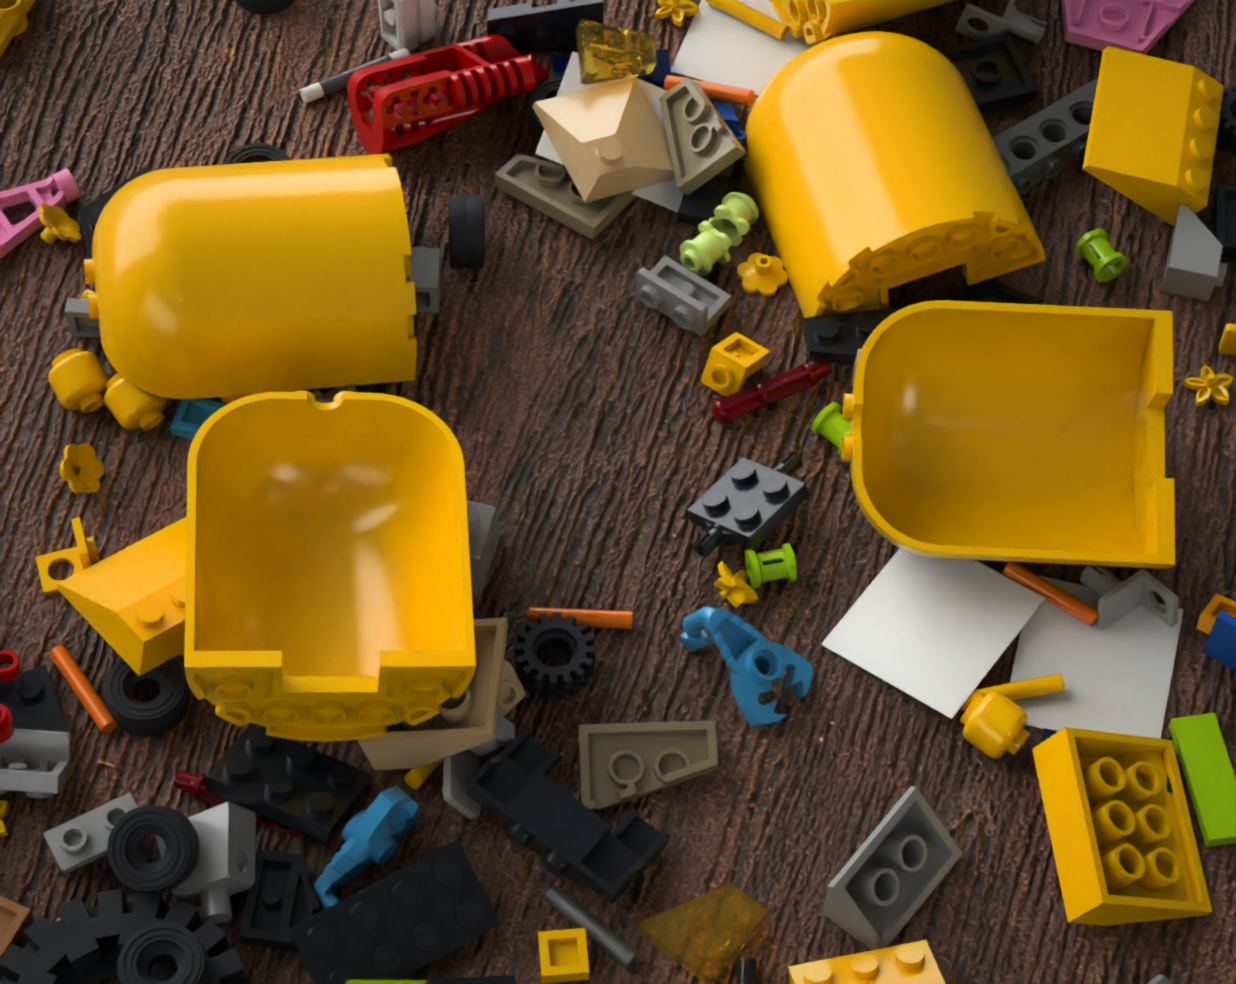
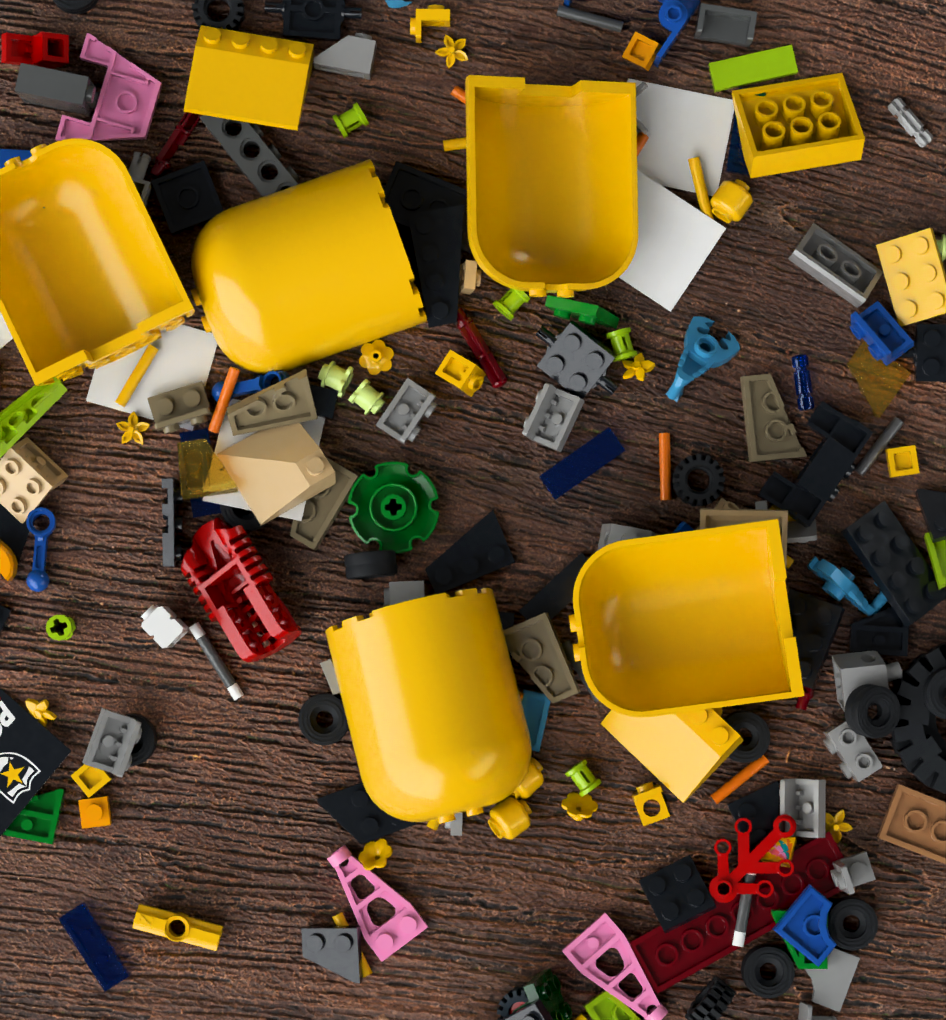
camera: 100 degrees left, 30 degrees up
(122, 476) = (583, 777): none -> lime bush
(468, 366) = (471, 557): none -> black wing
(546, 272) = (377, 524): none -> green piece
(593, 509) = (582, 463): none -> clear blue tile
(665, 466) = (552, 417): none -> light grey bracket
(700, 50) = (180, 407): none -> dark tan bracket
(702, 817) = (803, 382): none -> clear blue axle
(776, 926) = (881, 333): none -> blue bracket
(818, 511) = (585, 312): none -> green wing
(1054, 64) = (177, 138): none -> dark red piece

